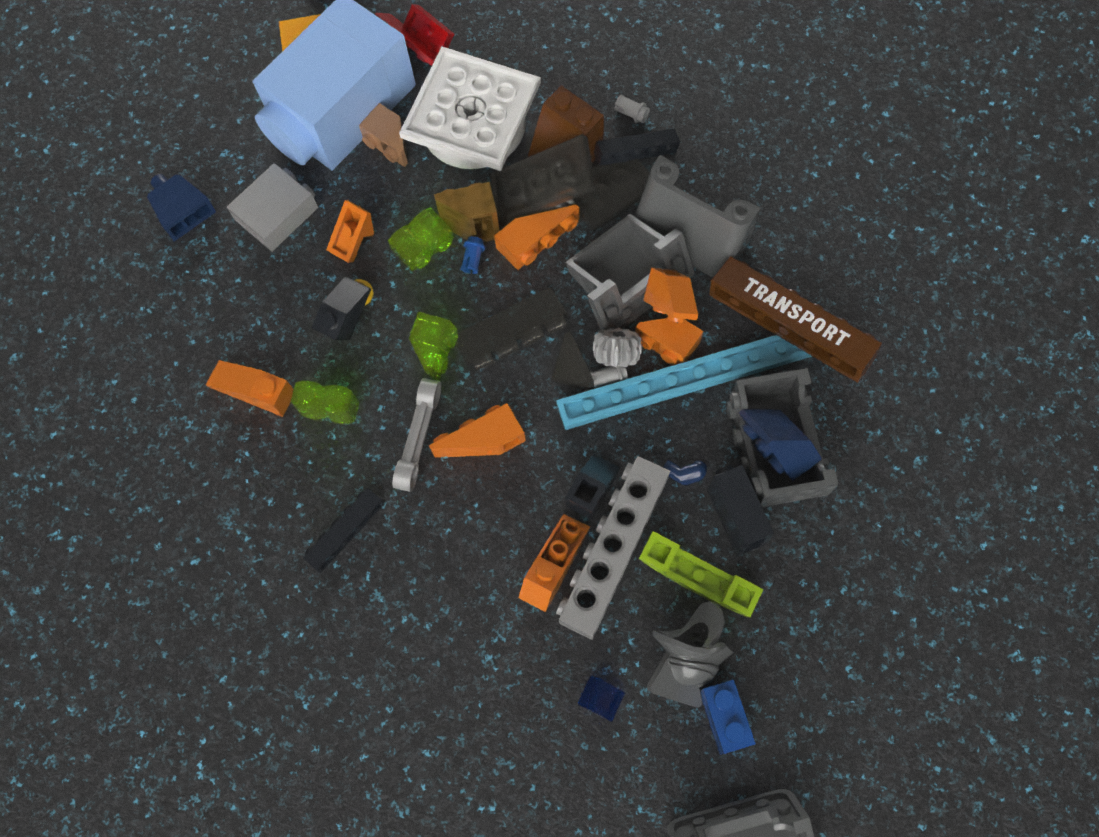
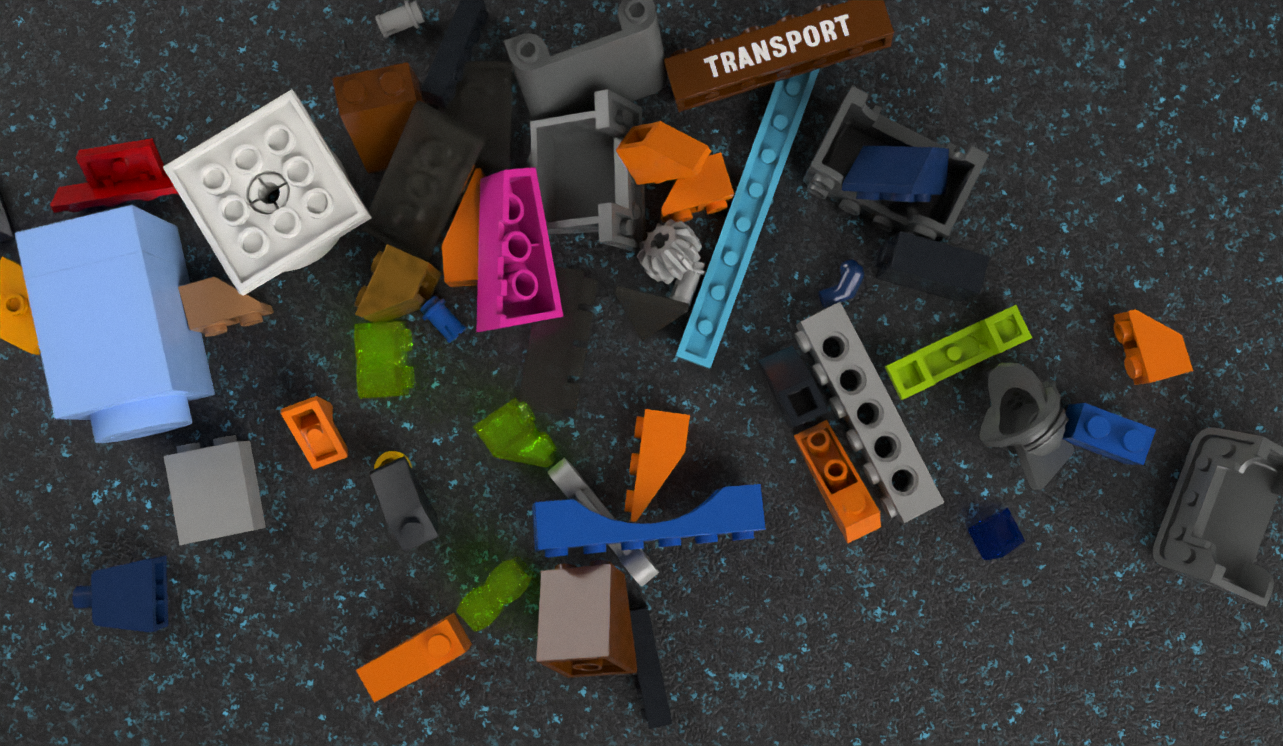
camera: 60 degrees left, 15 degrees up
(343, 466) = (585, 621): none -> slope
(477, 500) = (571, 525): none -> blue arch
(538, 261) = (514, 253): none -> dark pink wedge
(812, 707) = (1150, 348): none -> orange slope

